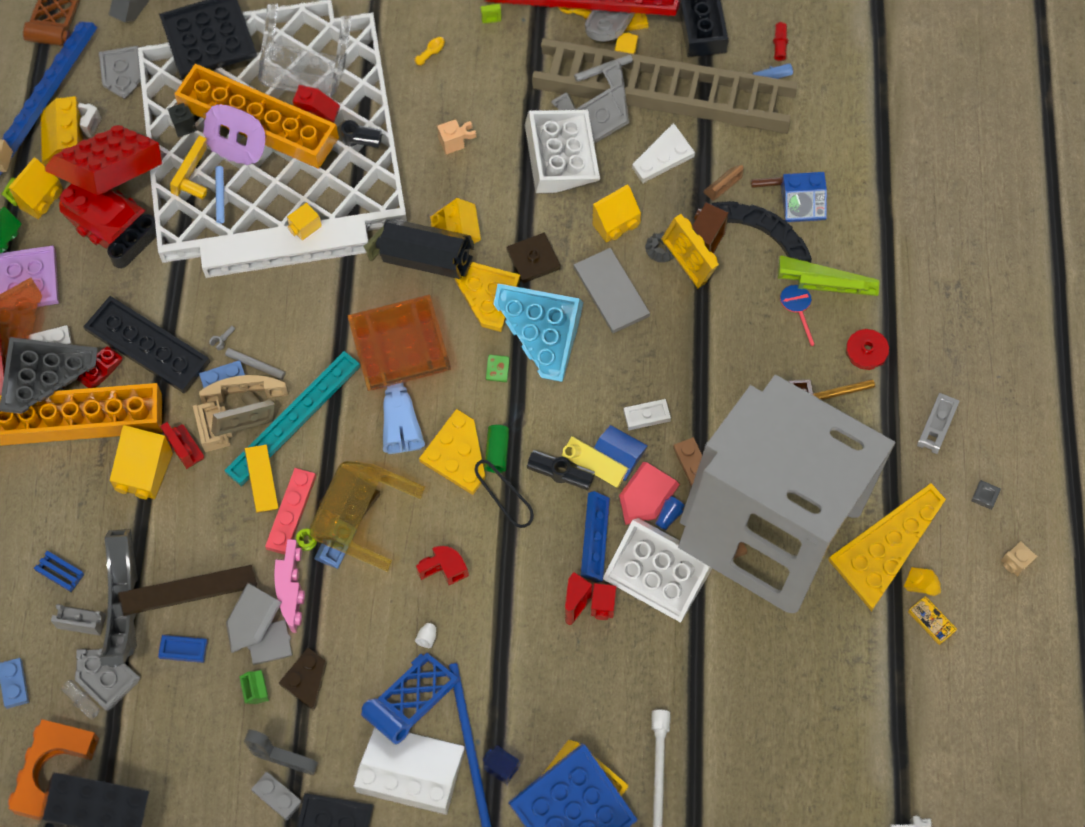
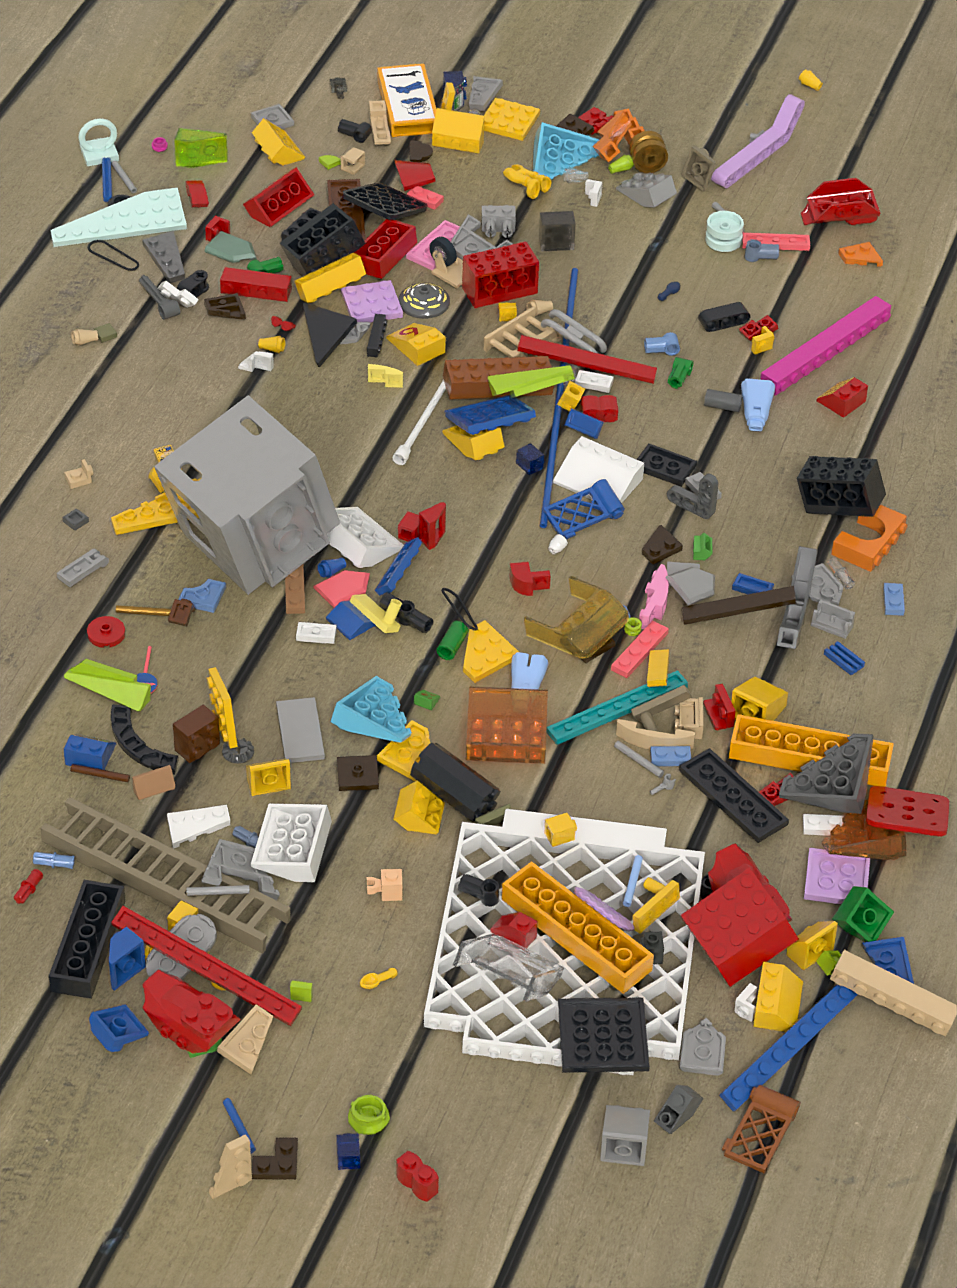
camera: 165 degrees left, 20 degrees down
(604, 151) = (246, 836): none -> sand blue axle

